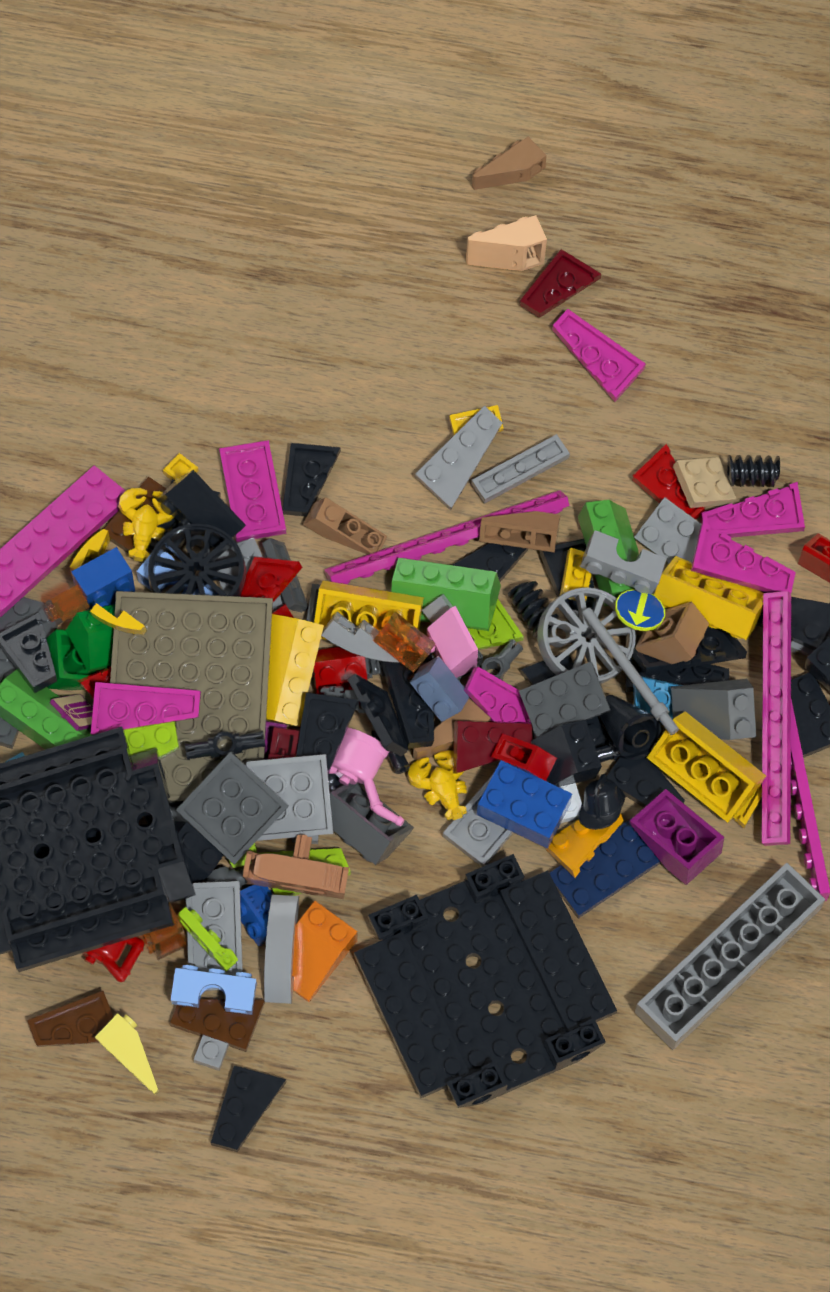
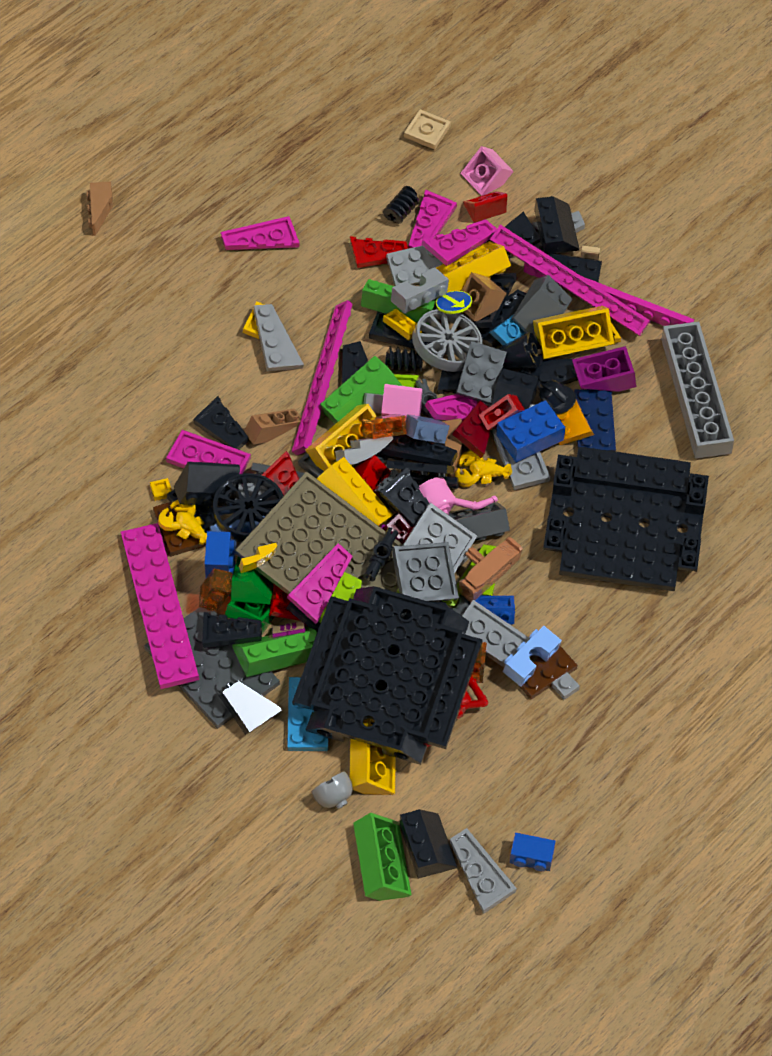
camera: 55 degrees left, 10 degrees down
(72, 1023) = (495, 745): reddish brown wing -> none
(92, 549) = (182, 566): yellow slope -> none
(125, 1045) = (536, 723): light yellow slope -> none
(206, 939) = (500, 637): lime hinge -> none
(244, 1103) = (612, 687): black wing -> none
(280, 949) = (528, 604): light grey slope -> none
(319, 948) = (540, 594): orange slope -> none
(509, 246) = (157, 233): light nougat slope -> none
(520, 468) = (306, 316): light grey plate -> none
(523, 530) = (353, 332): medium nougat slope -> none
(558, 283) = (198, 228): dark red wing -> none
(658, 709) = (528, 326): light grey bar -> none
(704, 482) = (390, 232): tan plate -> none

